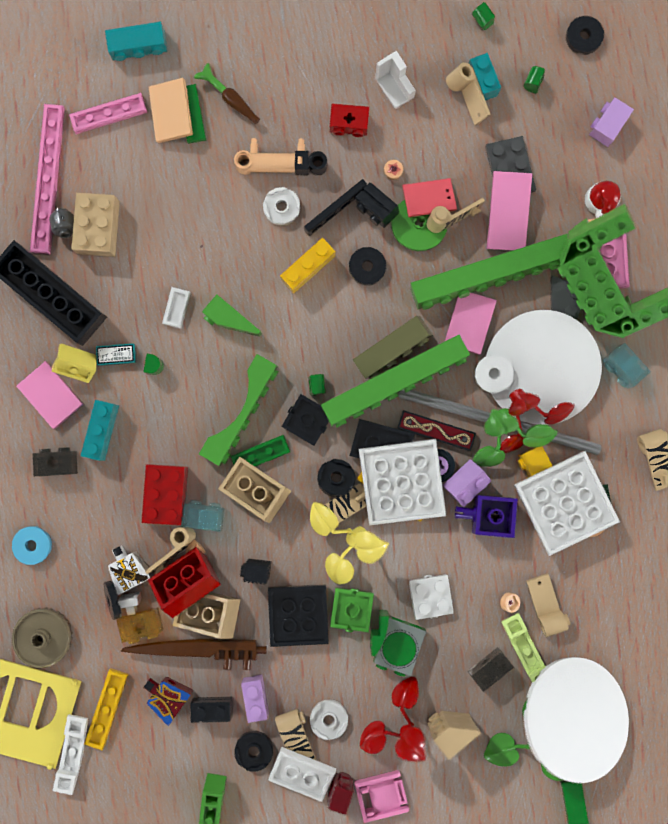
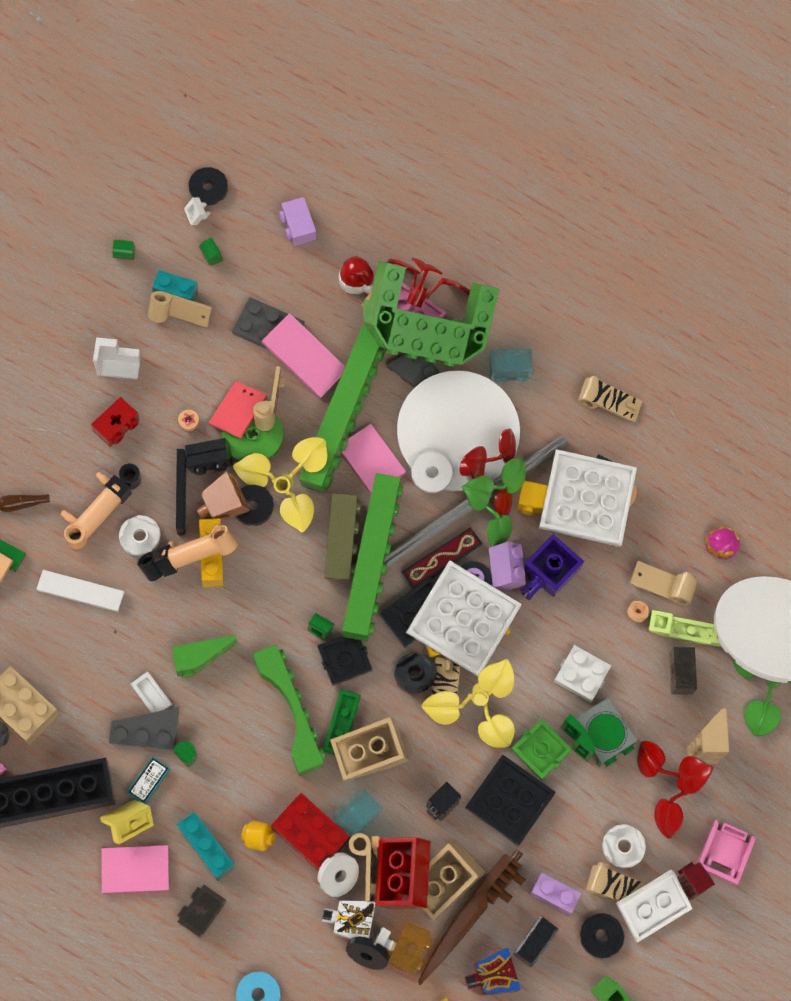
camera: 60 degrees left, 15 degrees down
(135, 460) = (257, 835): none -> yellow head
(141, 541) = (347, 879): none -> white tile
(149, 326) = (147, 730): none -> dark grey wing
(209, 198) = (80, 591): none -> white tile
(279, 240) = (170, 558): none -> light nougat piece
(353, 242) = (223, 499): none -> nougat torso
(434, 274) = (297, 510): none -> light yellow plant
(557, 41) = (195, 211): none -> white tile
(613, 625) = (722, 542): none -> dark pink hair
(626, 254) = (418, 292): none -> red plant

